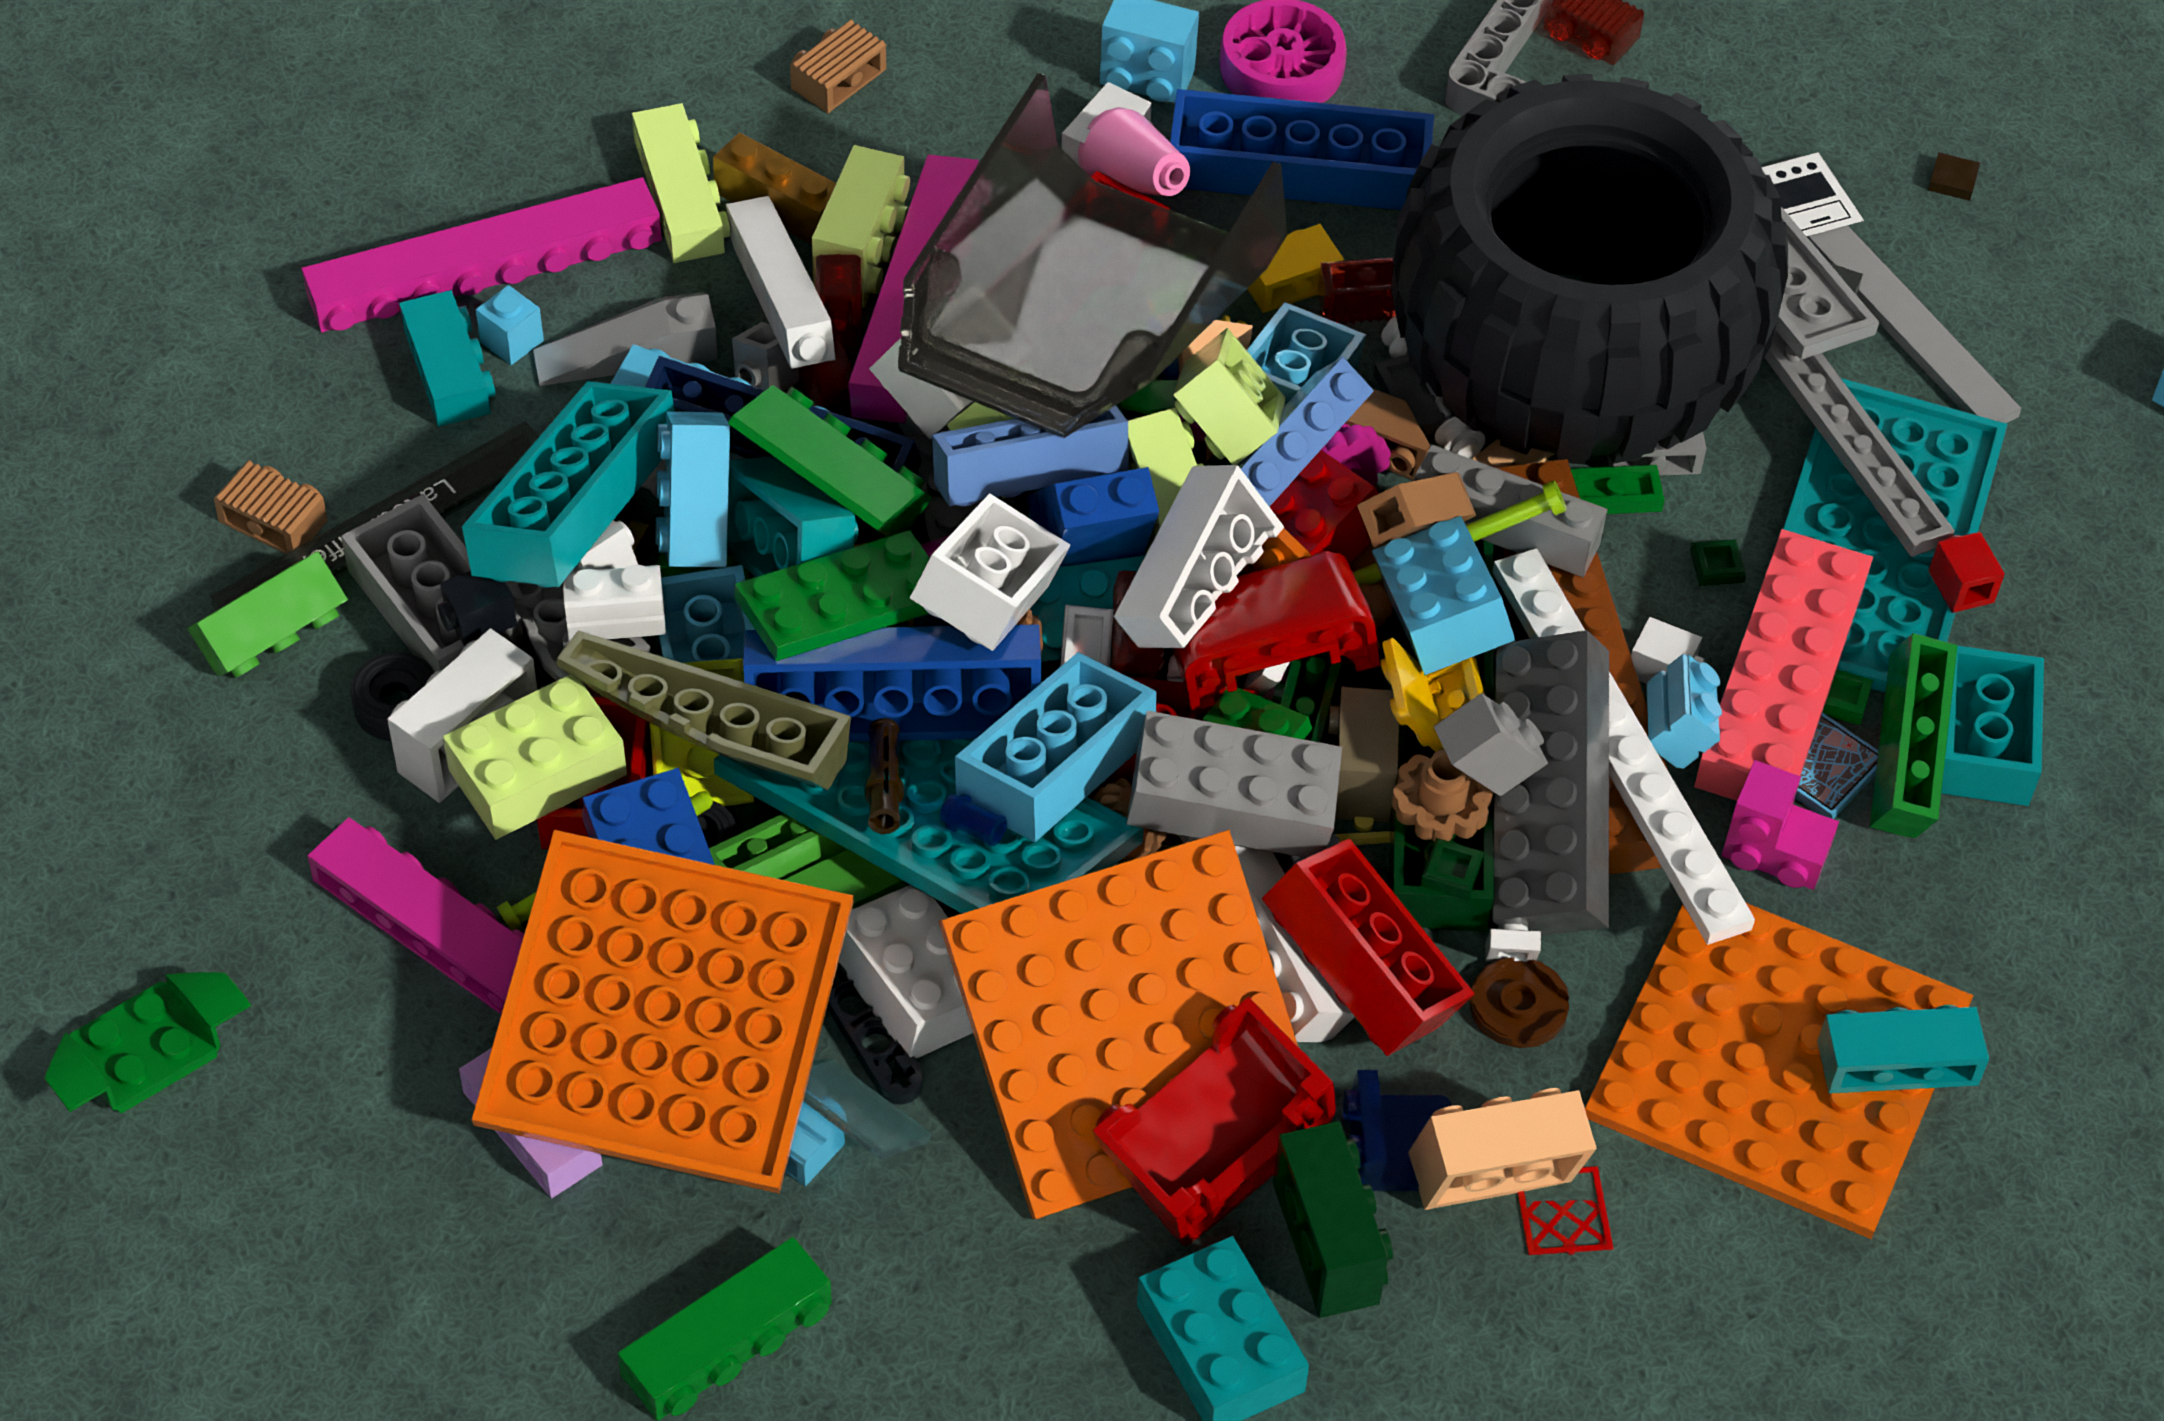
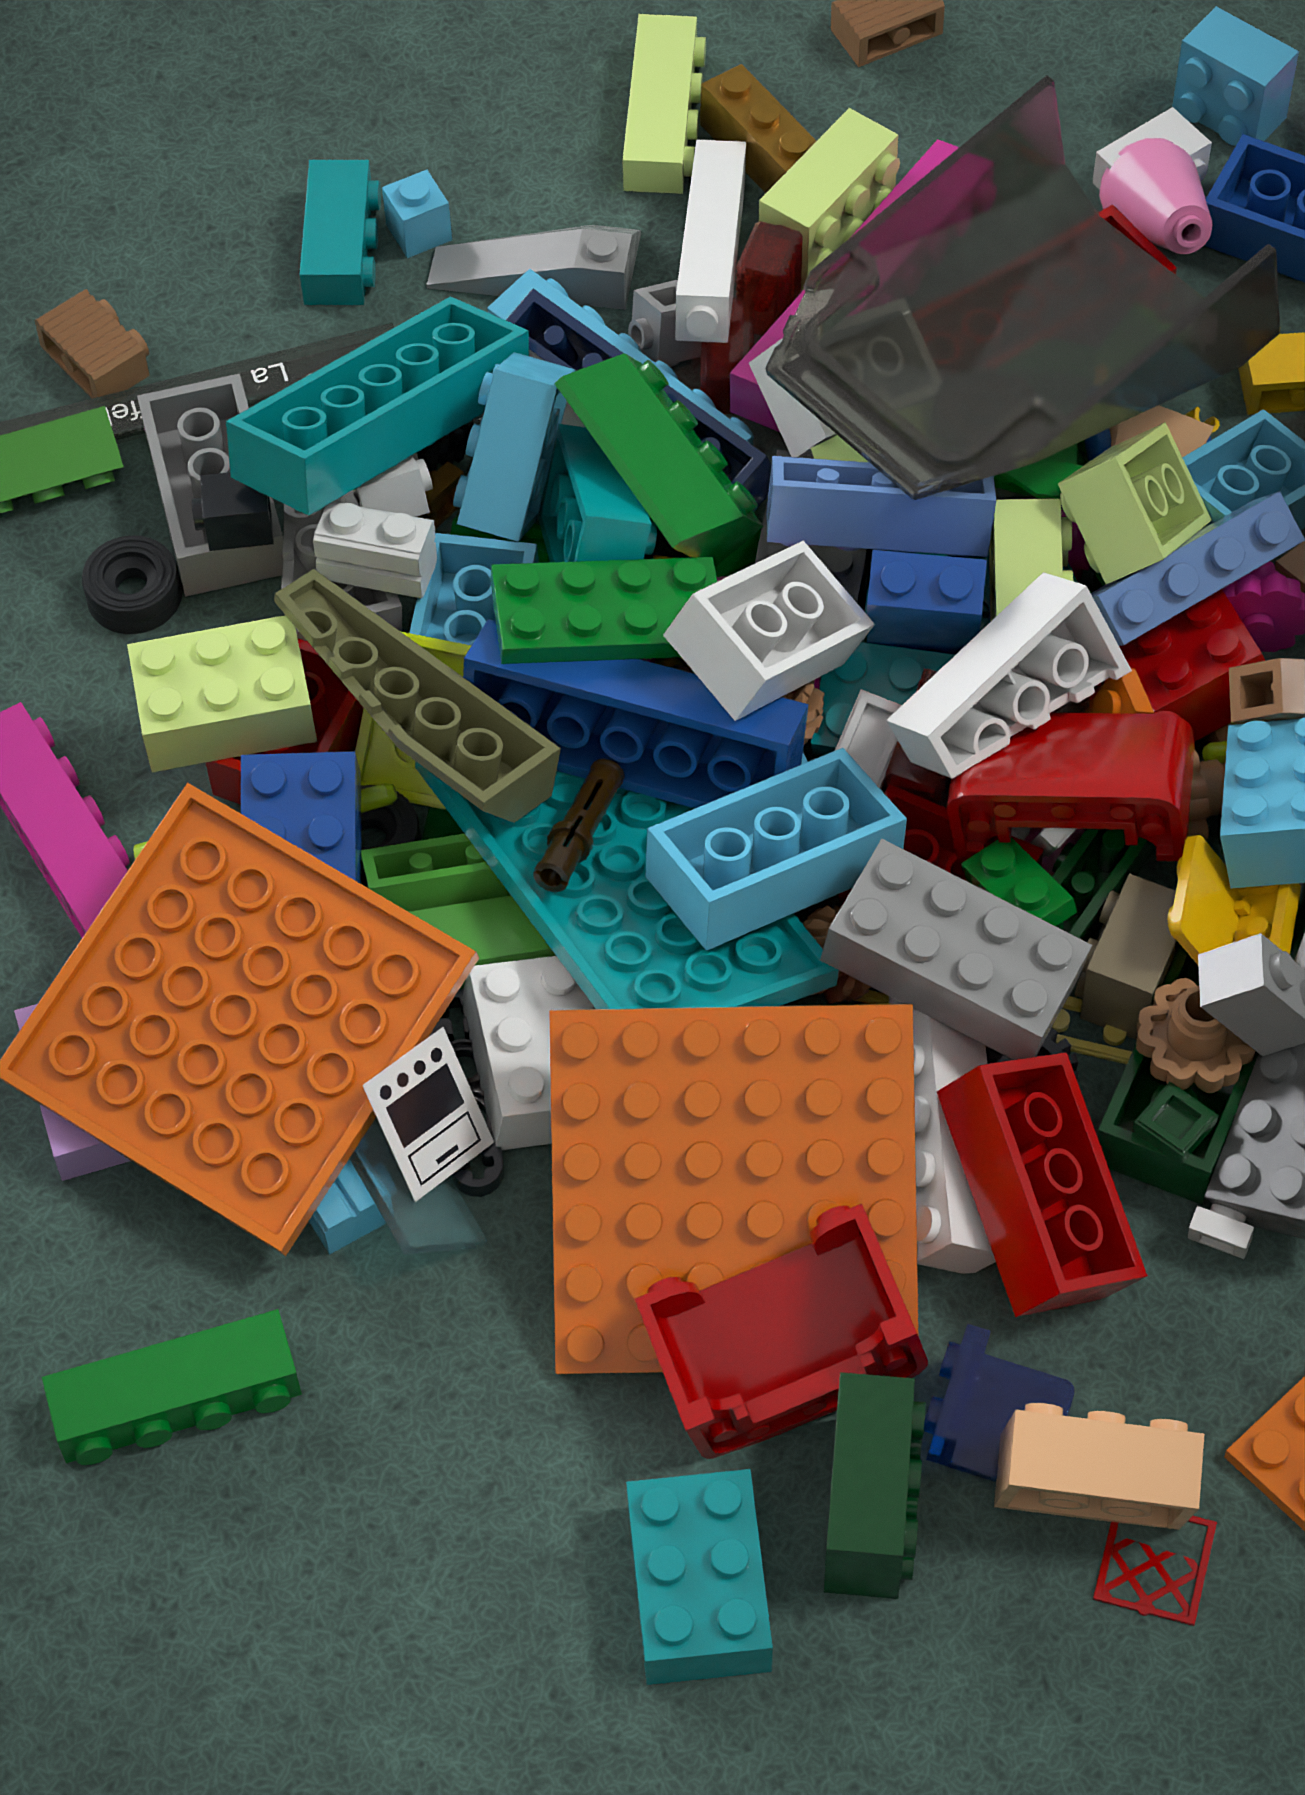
camera: 25 degrees right, 5 degrees up
(476, 683) = (197, 596): white brick -> none
(483, 254) = (425, 129): dark pink brick -> none
(856, 1041) = (428, 1114): none -> white sticker
(963, 815) = (639, 893): clear blue pin -> none
(1517, 1018) = (1199, 1319): reddish brown tile -> none

